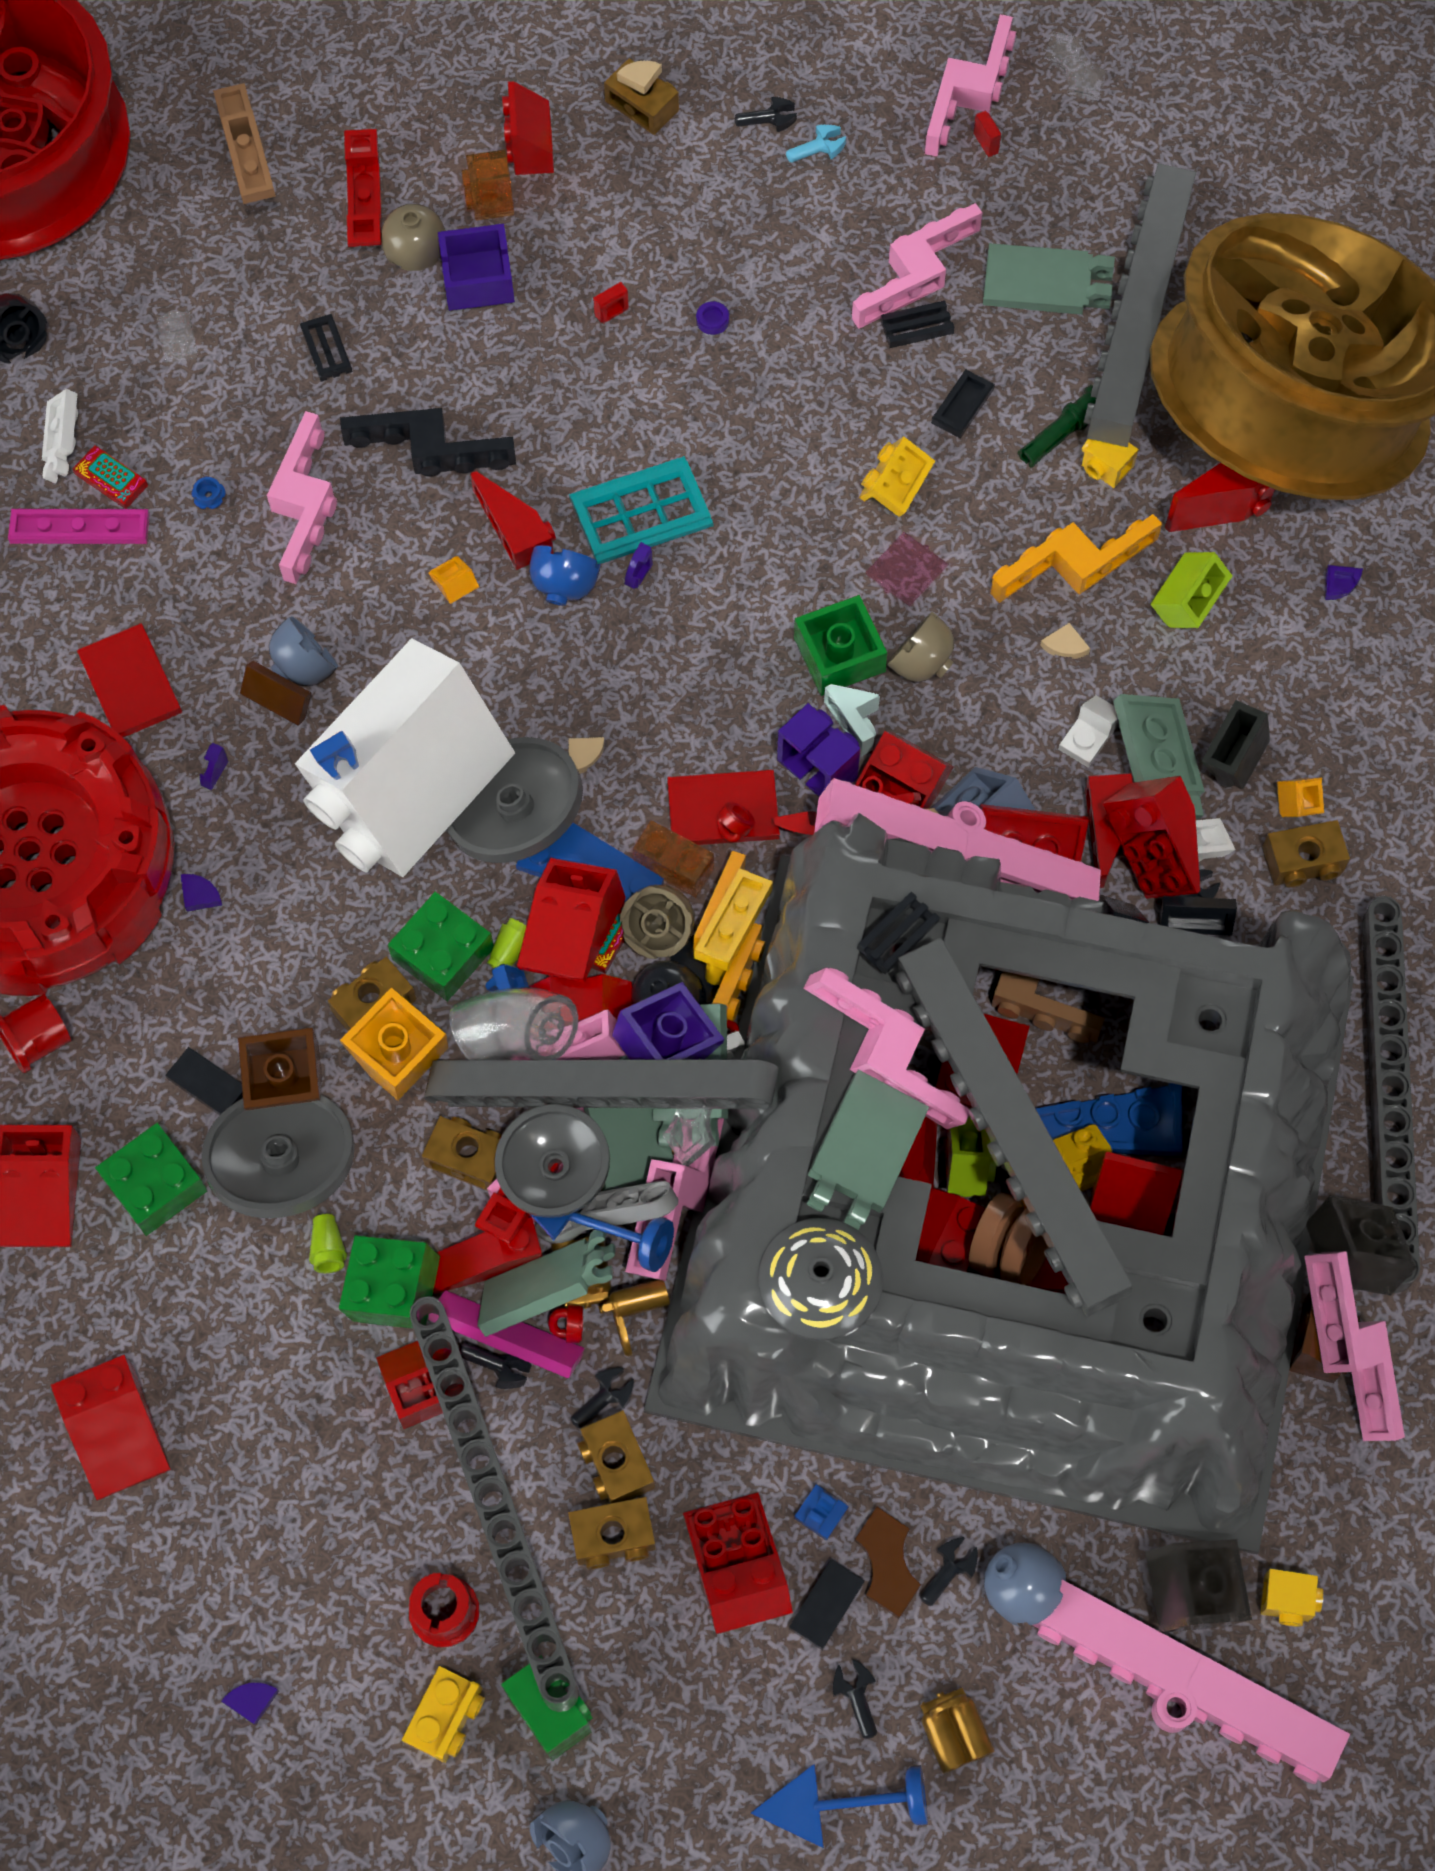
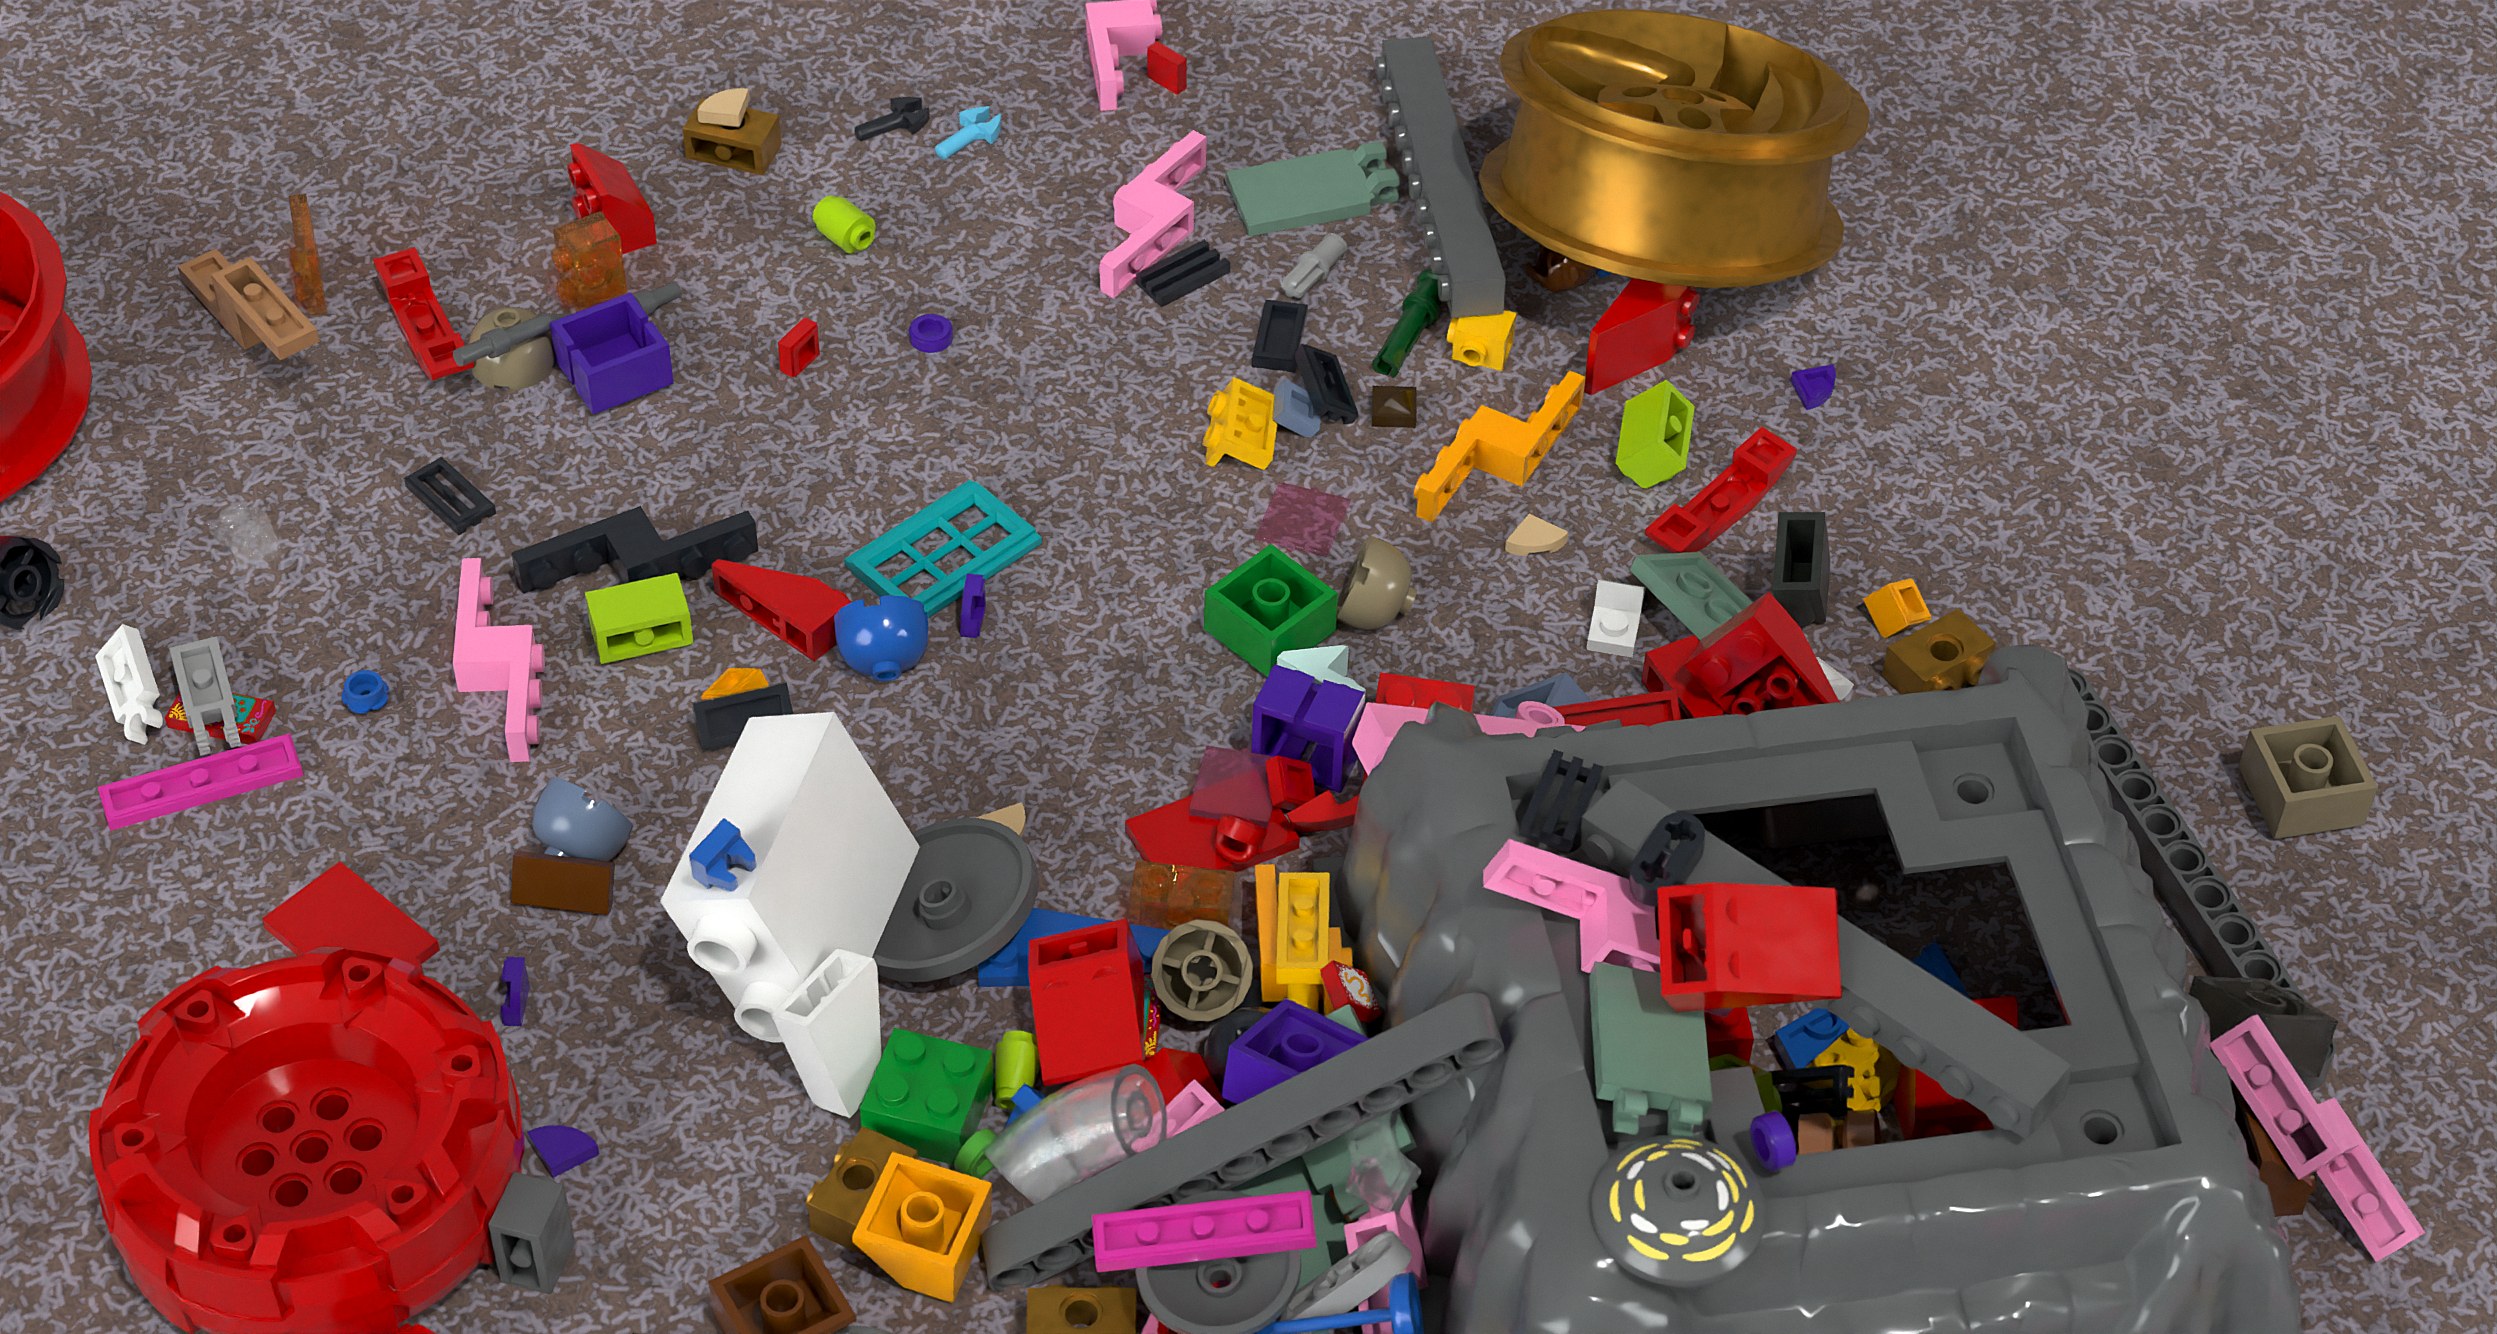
camera: 25 degrees left, 20 degrees down
(101, 461) = (205, 690): none -> light grey hinge
(148, 955) = (532, 1232): none -> dark grey brick
(299, 113) = (306, 257): none -> clear orange plate
(393, 880) = (834, 1031): none -> white slope
(394, 237) = (500, 341): none -> dark grey bar
(406, 498) = (636, 613): none -> lime brick
(446, 601) = (724, 717): none -> black tile
(453, 997) = (971, 1157): none -> bright green tile
(551, 1135) = (1203, 1231): none -> dark pink tile
(689, 202) = (844, 223): none -> lime brick
(737, 985) = (1351, 987): none -> red tile
(754, 778) = (1232, 784): none -> clear pink piece
(791, 791) = (1289, 782): none -> red tile
(906, 1255) = (1773, 1141): none -> dark purple tile
(941, 1024) = (1658, 853): none -> black beam
(943, 475) = (1295, 410): none -> sand blue tile
(953, 1109) = (1747, 945): none -> red slope
(969, 457) = (1326, 384): none -> black tile
(1015, 350) = (1314, 265): none -> light grey axle
(1017, 494) = (1394, 406): none -> dark brown tile
(1219, 660) = (1728, 498): none -> red slope

